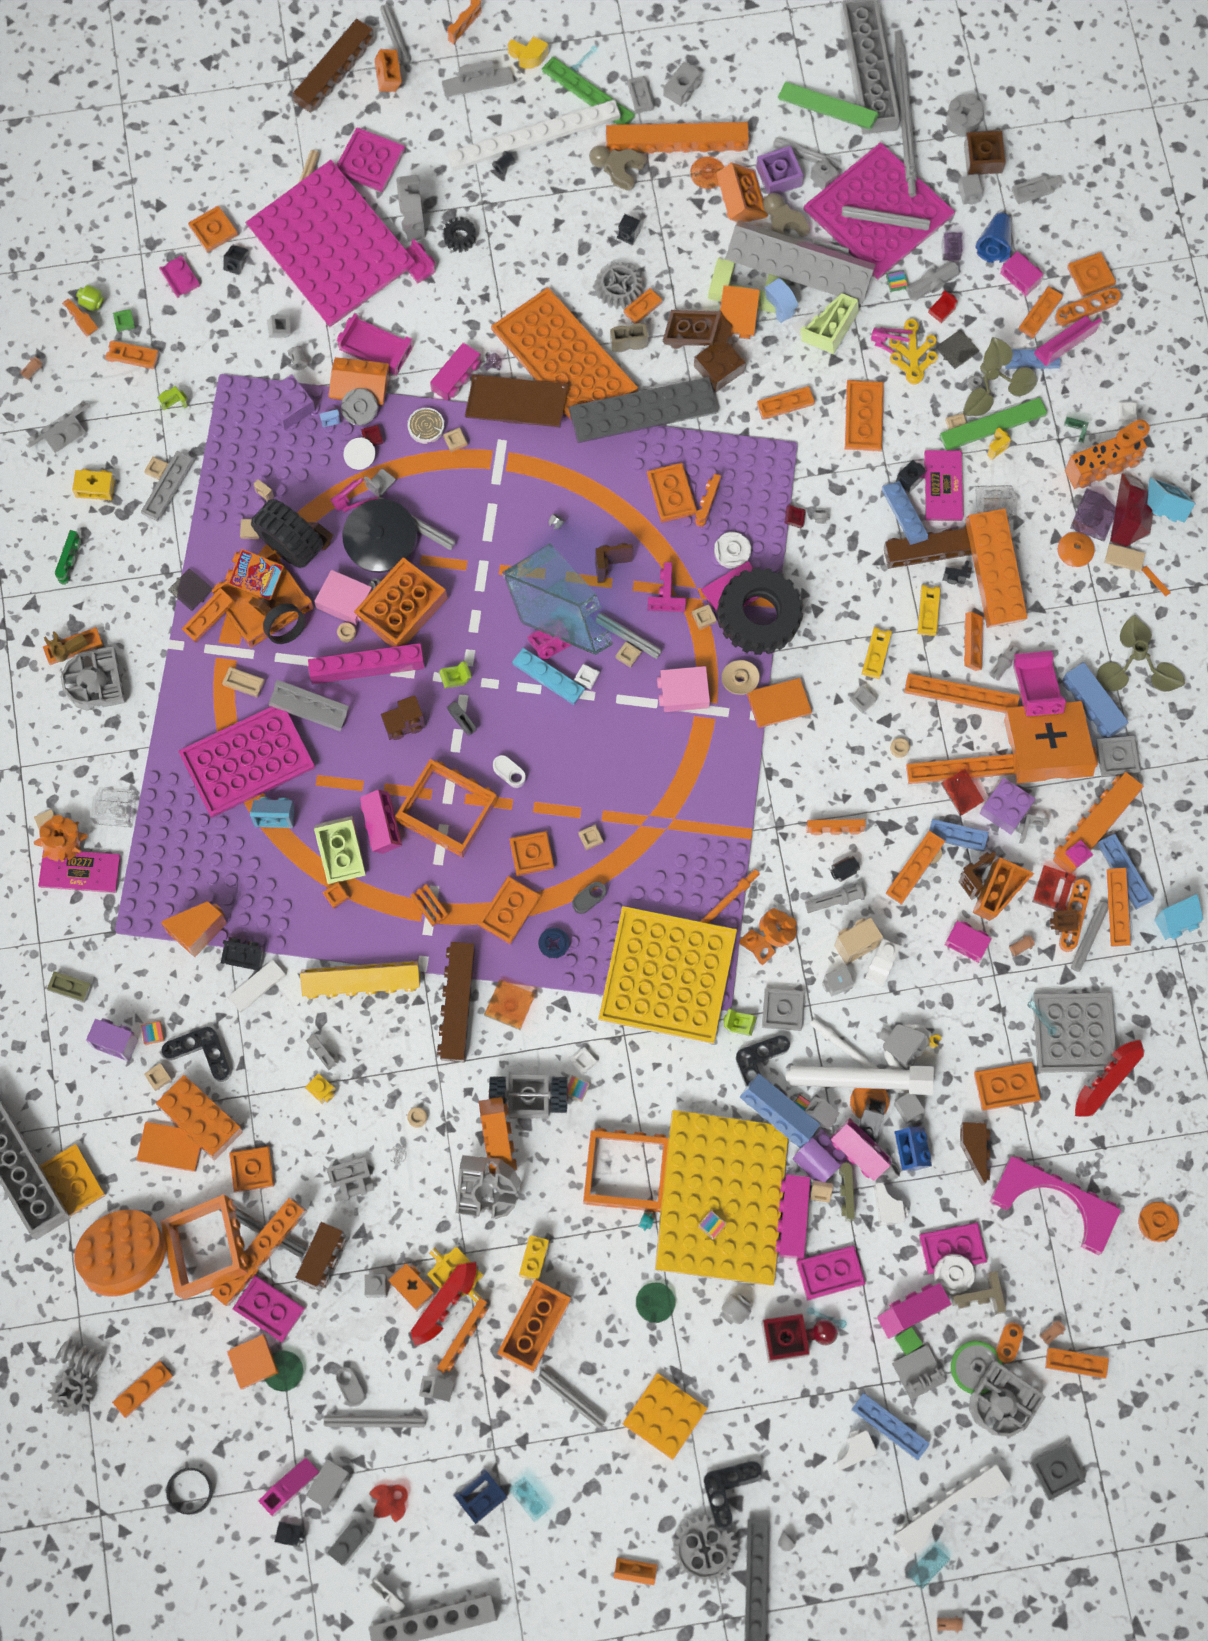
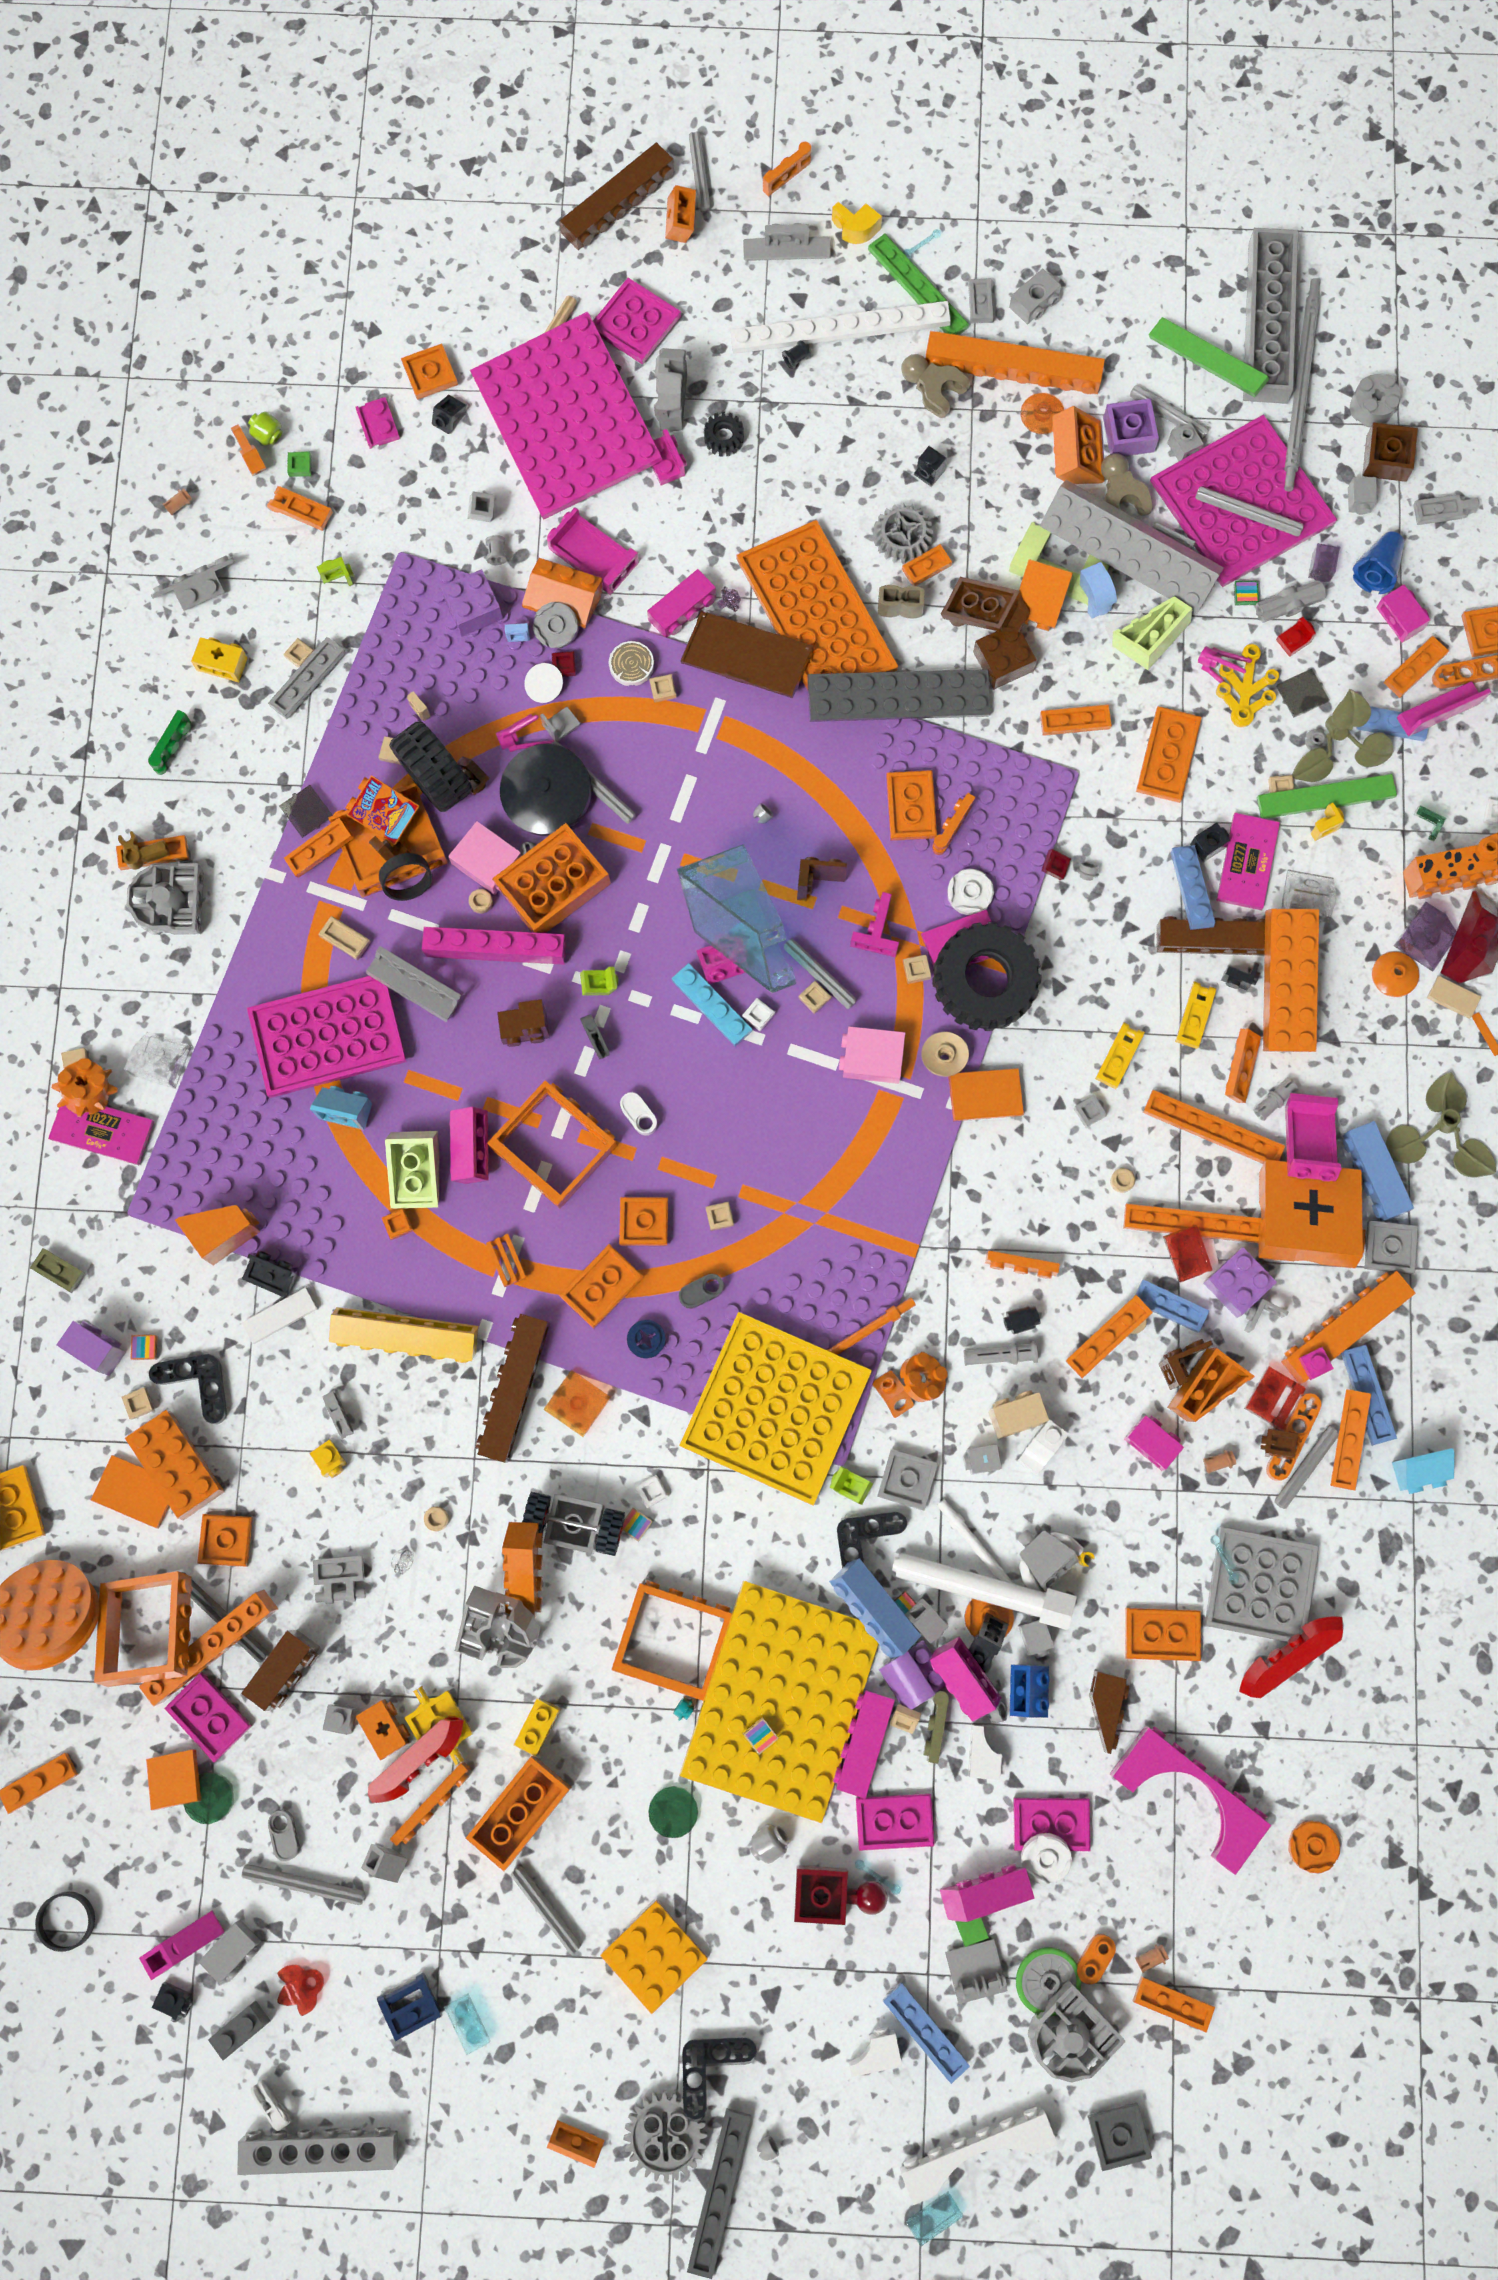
camera: 15 degrees right, 5 degrees up
(984, 1296) = (1076, 1895): dark tan bracket -> none

